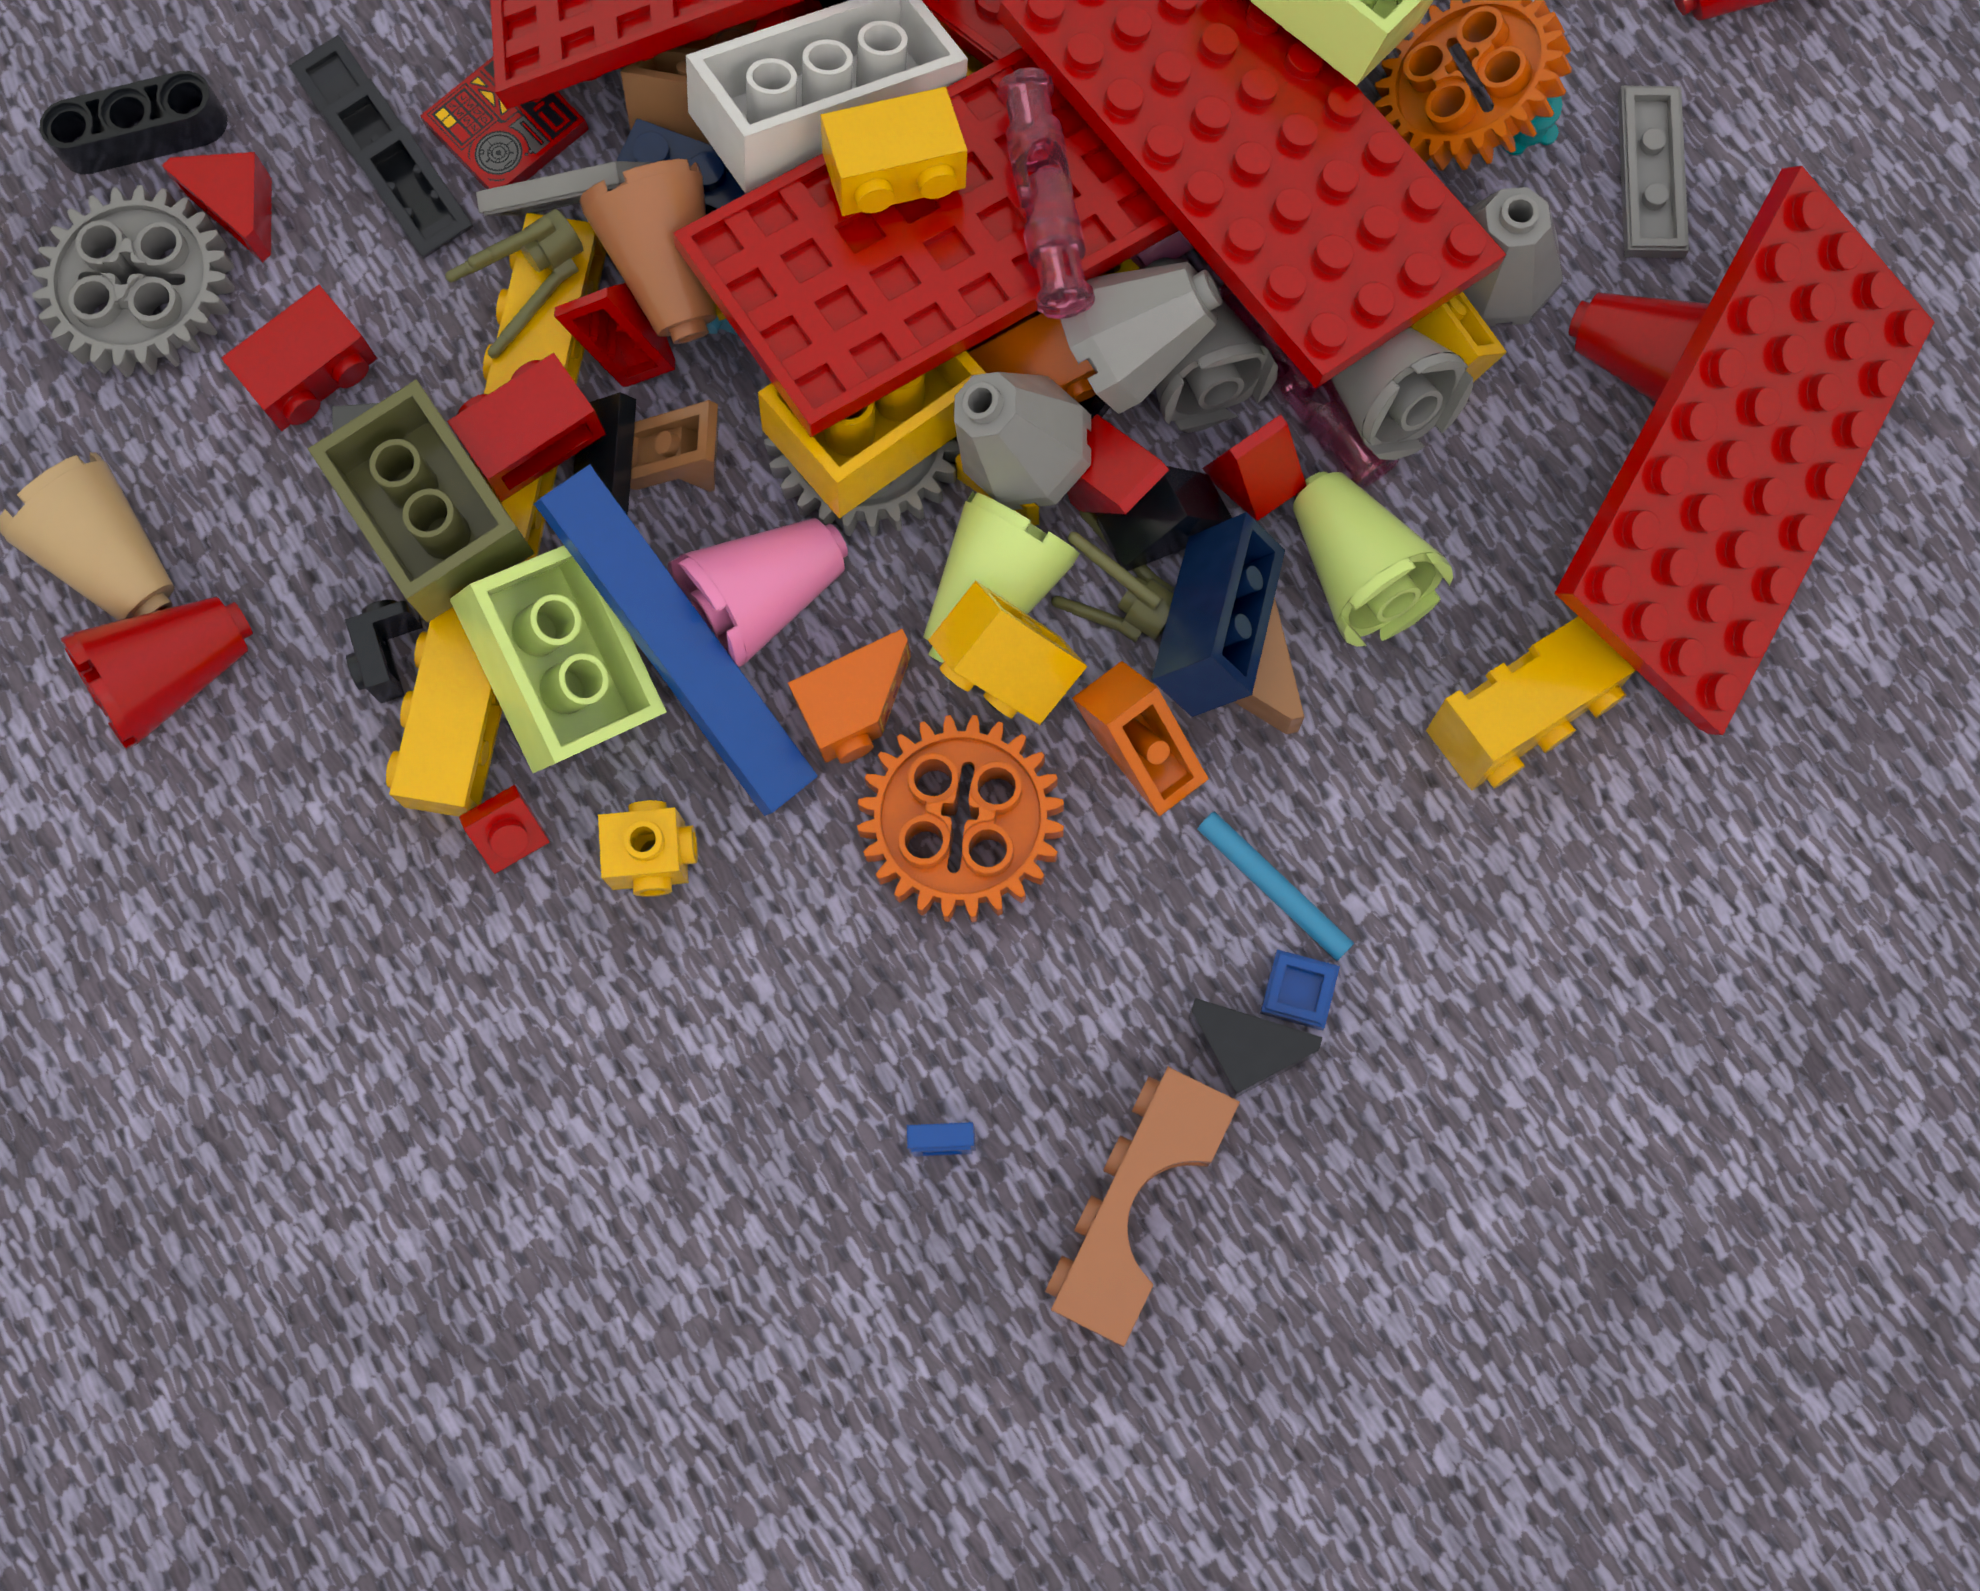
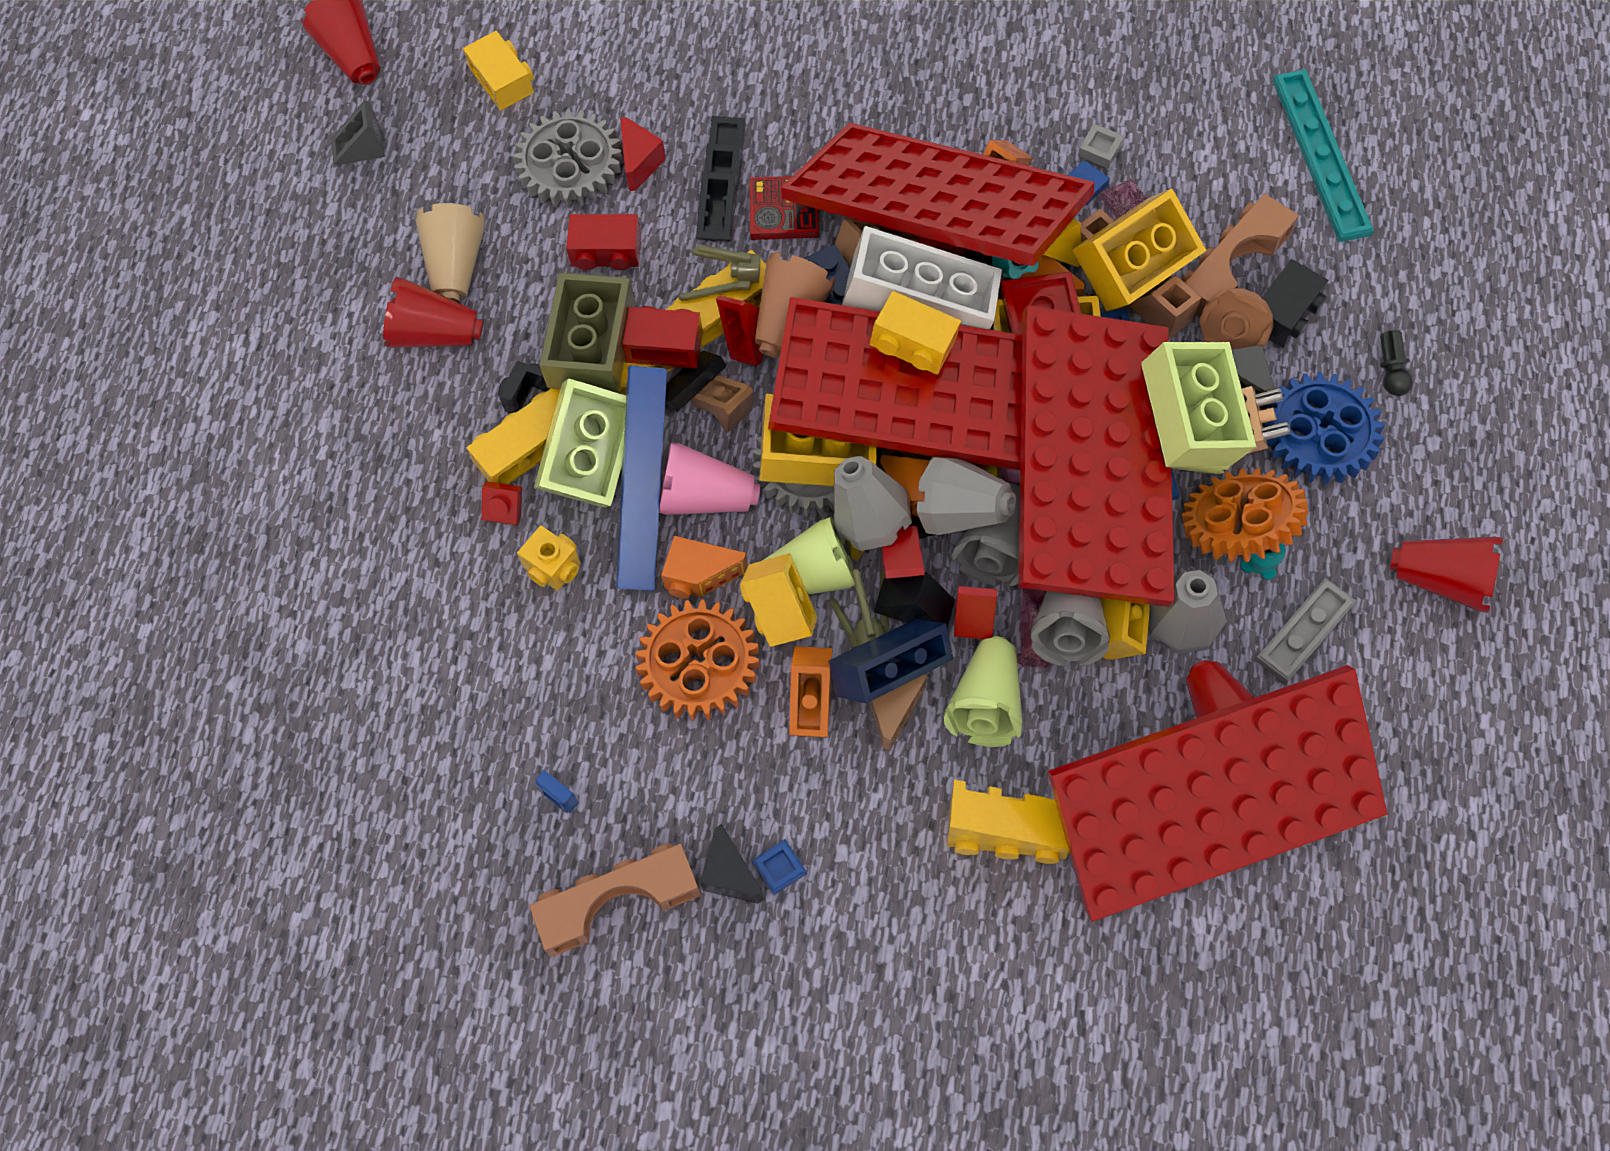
camera: 40 degrees right, 10 degrees down
(107, 118) = (628, 93): black beam -> none
(550, 191) = (764, 245): light grey tile -> none
(1053, 225) = (958, 420): clear pink piece -> none
(1275, 886) = (812, 811): dark azure bar -> none

